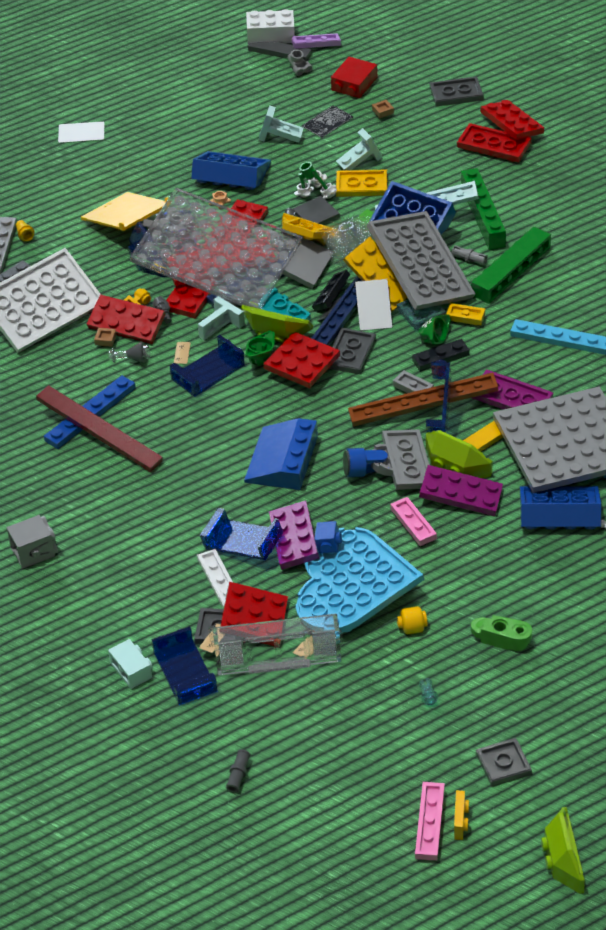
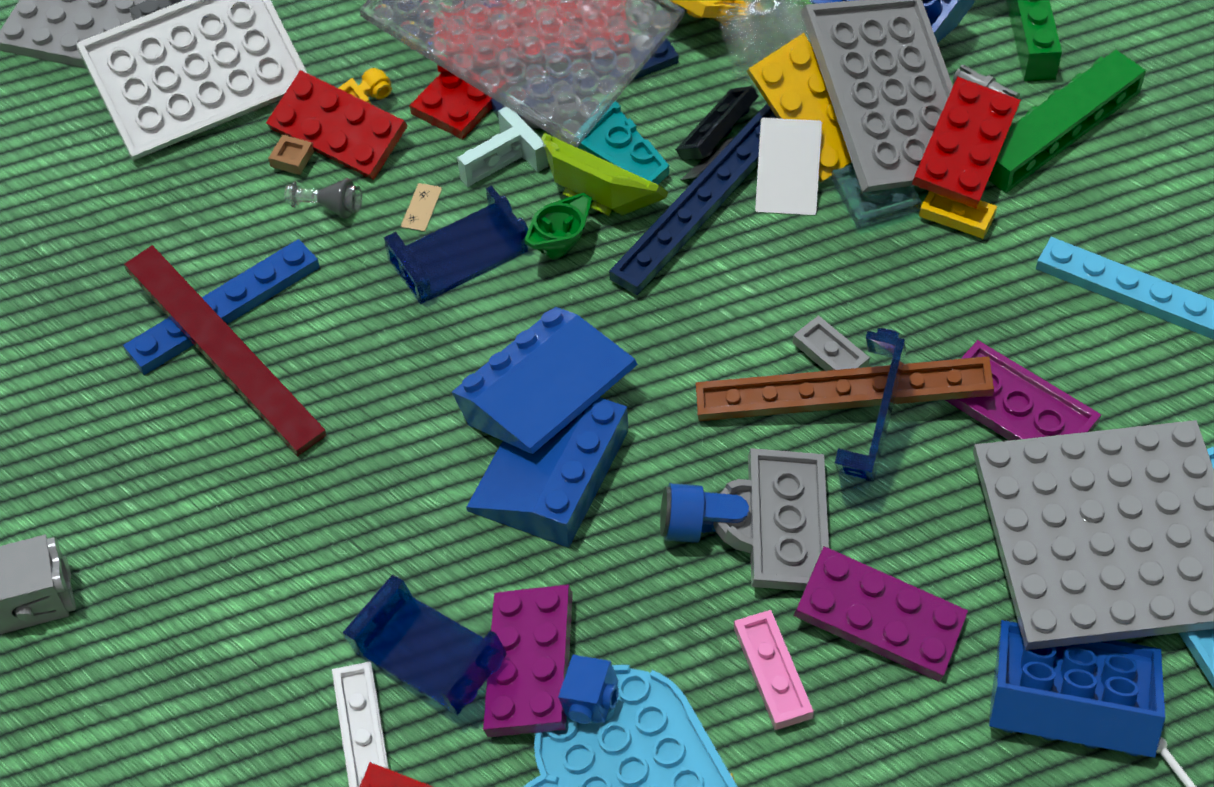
camera: 10 degrees right, 10 degrees up
(162, 304) = (407, 108): dark grey piece -> none
(269, 416) = (542, 380): none -> blue slope
(301, 359) = (631, 263): red plate -> none
(308, 263) = (687, 61): light grey tile -> none
(354, 350) = (728, 254): dark grey tile -> none
(435, 329) = (895, 237): green hat -> none
(446, 352) = (896, 290): black plate -> none
(456, 455) = (884, 535): lime wedge -> none
(463, 279) = (966, 142): none -> red plate
(485, 437) = (934, 499): yellow tile -> none

